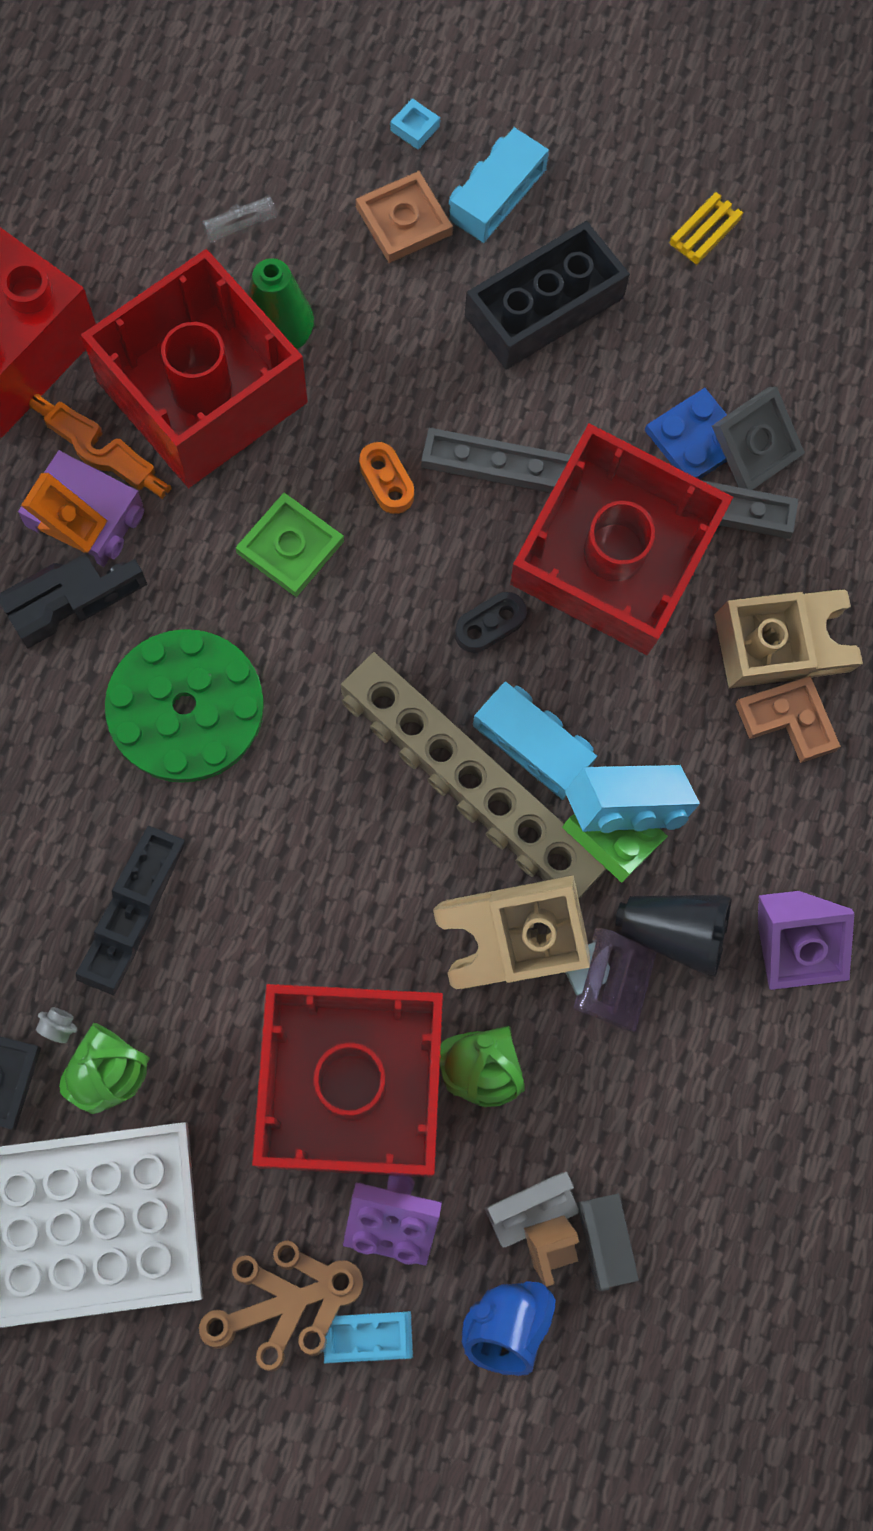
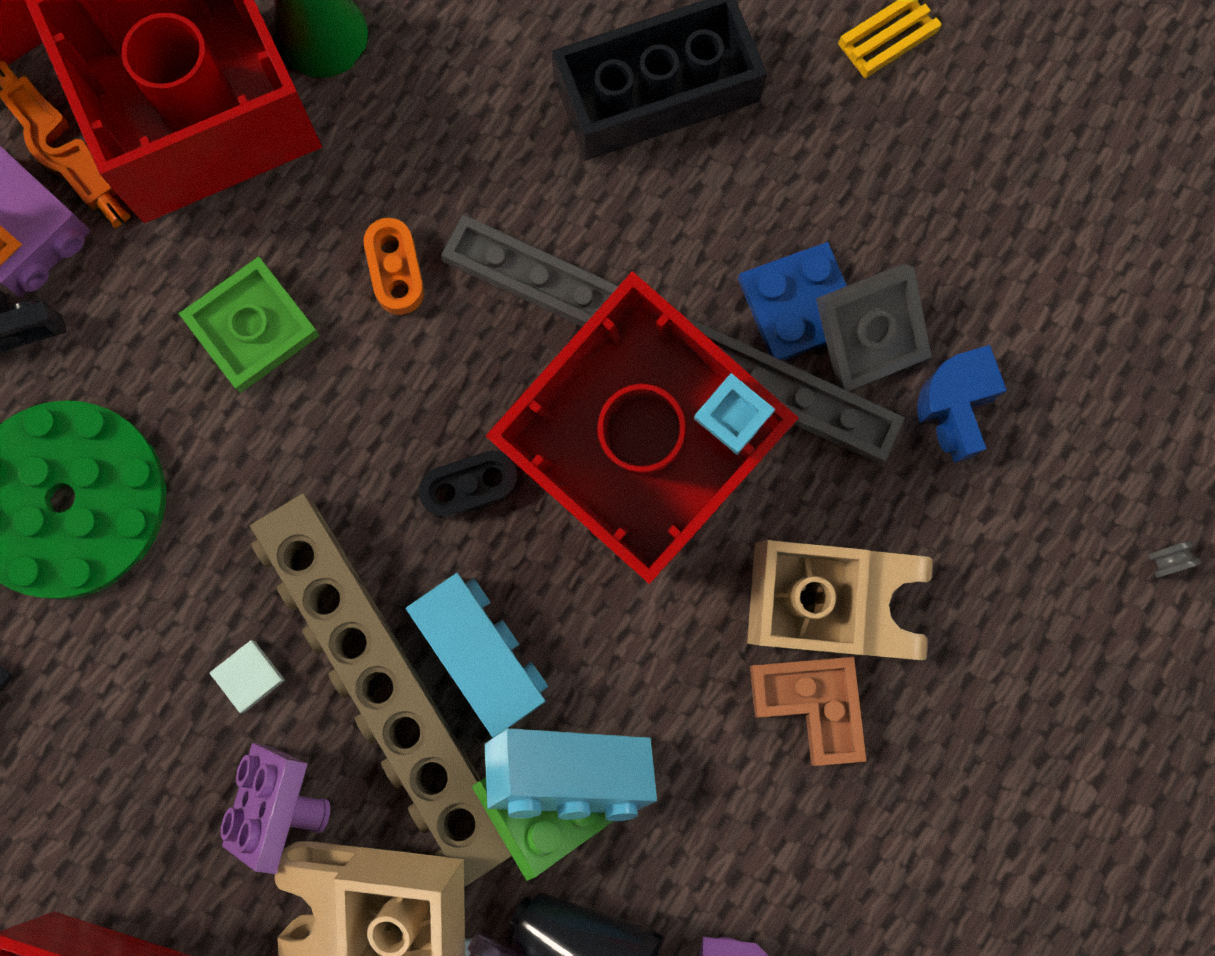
camera: 15 degrees right, 5 degrees up
(364, 799) = (247, 676): none -> light aqua tile
(414, 880) = (268, 806): none -> medium lavender plate
(689, 502) = (734, 414): none -> medium azure plate
(829, 475) = (950, 395): none -> blue brick

